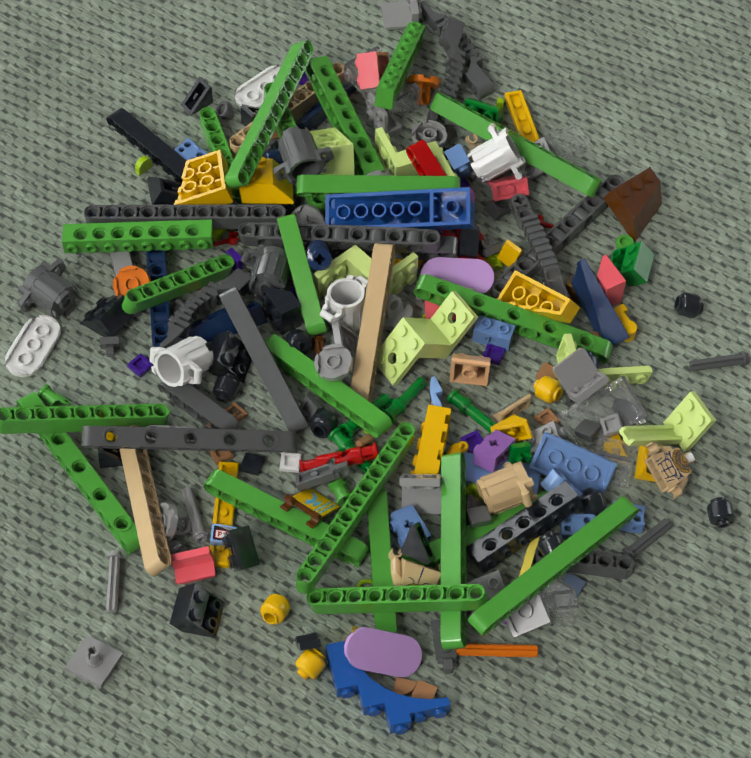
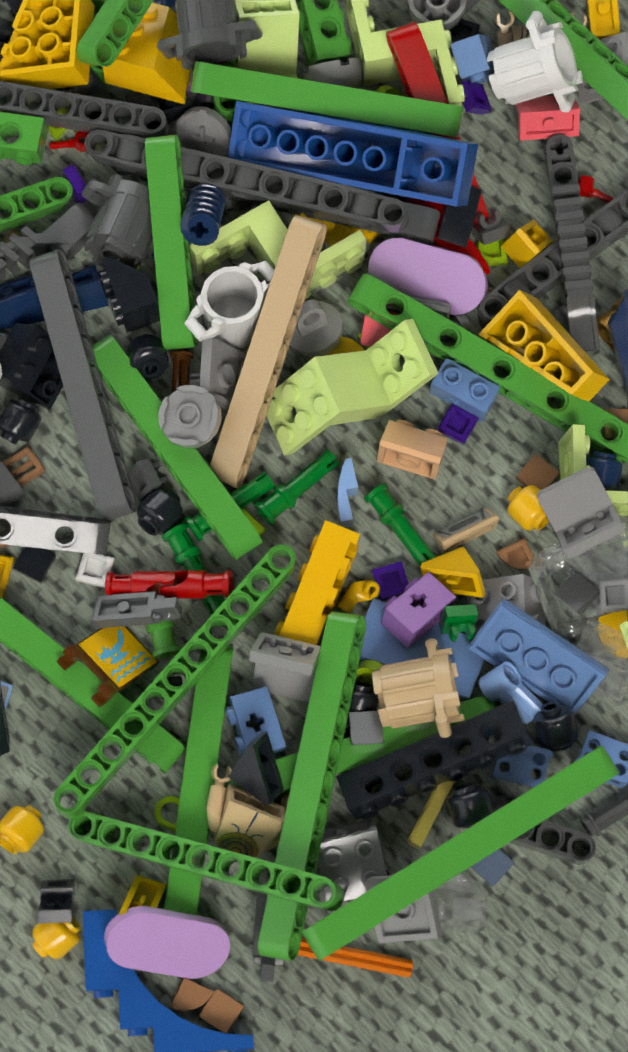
camera: 10 degrees right, 20 degrees up
(365, 441) = (216, 560): medium nougat tile -> none
(497, 209) = (522, 152): dark grey slope -> none

